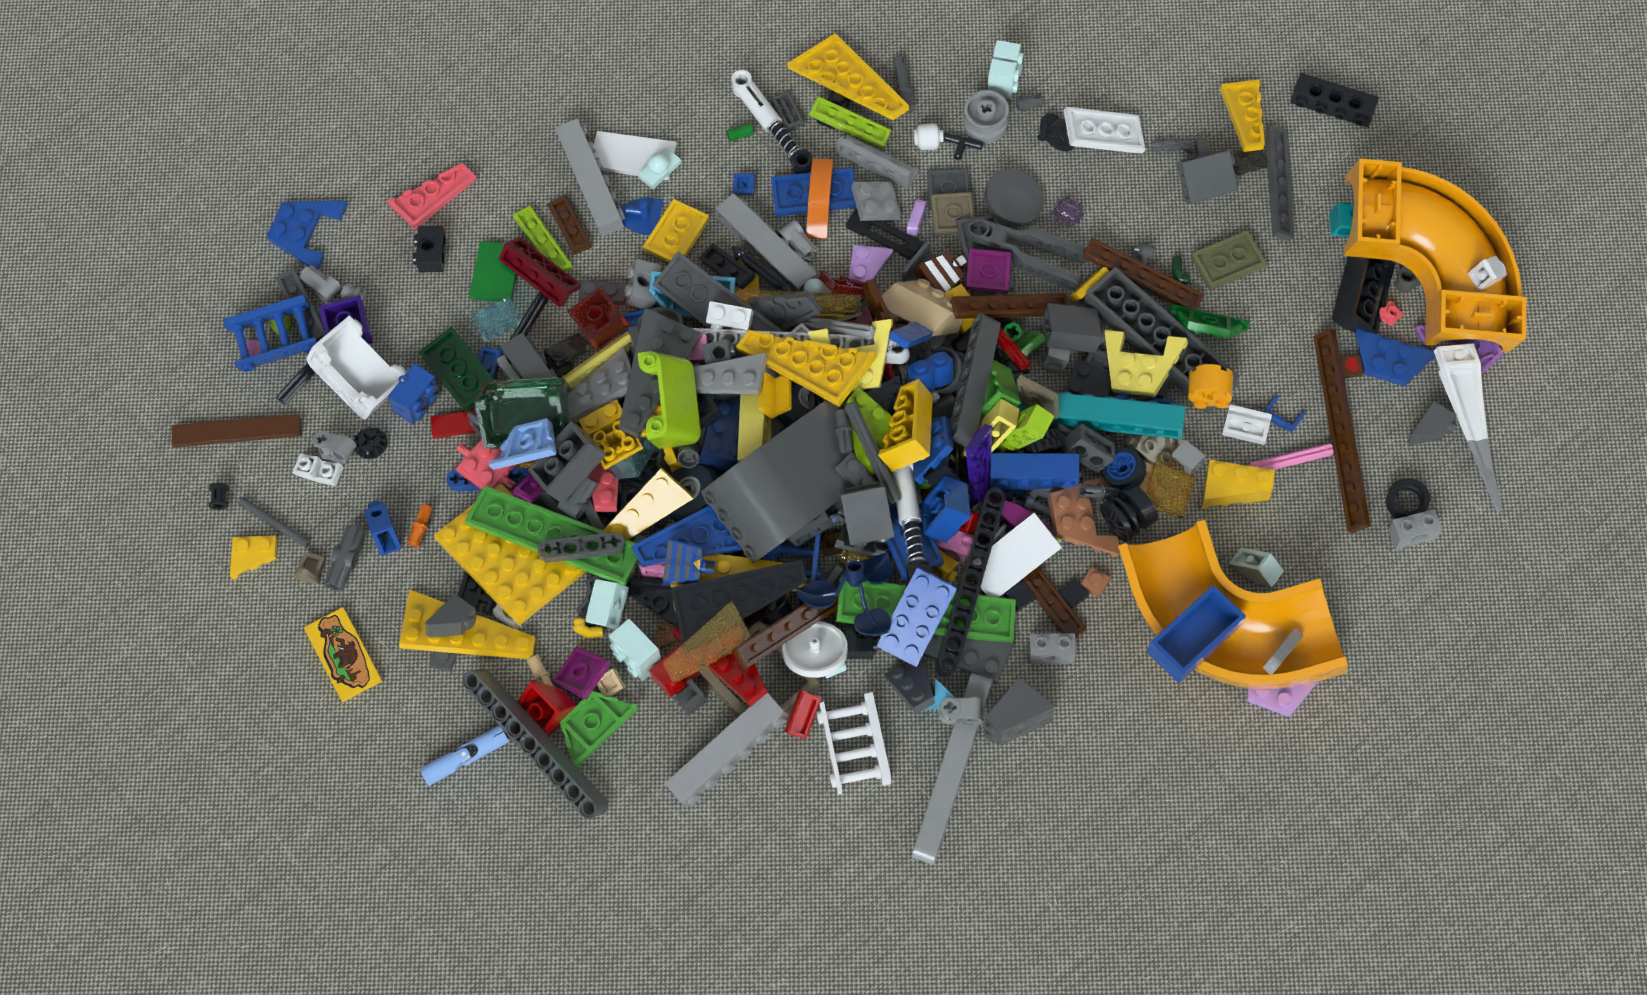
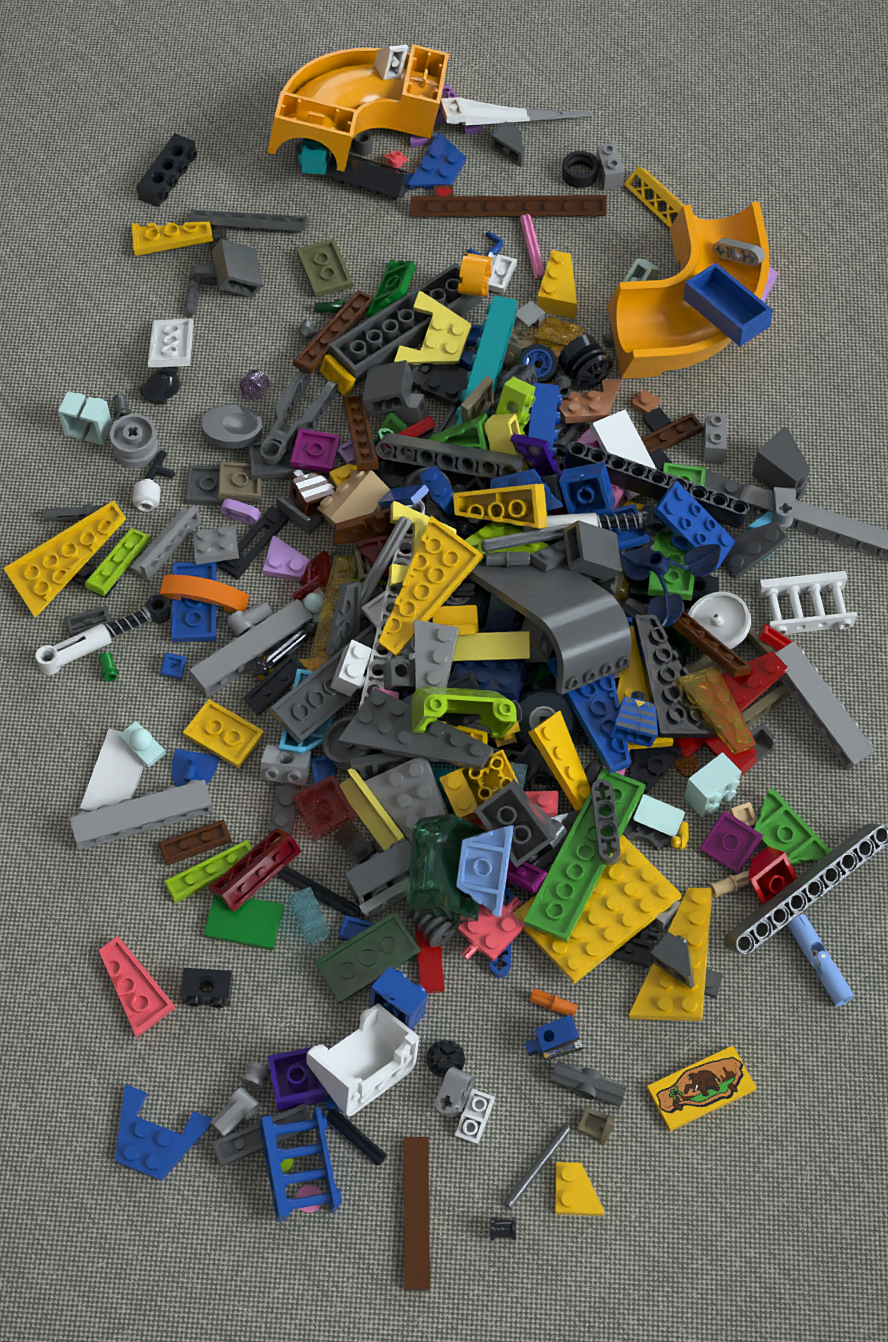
camera: 90 degrees left, 5 degrees down
(1384, 587) = (659, 189): none -> yellow fence

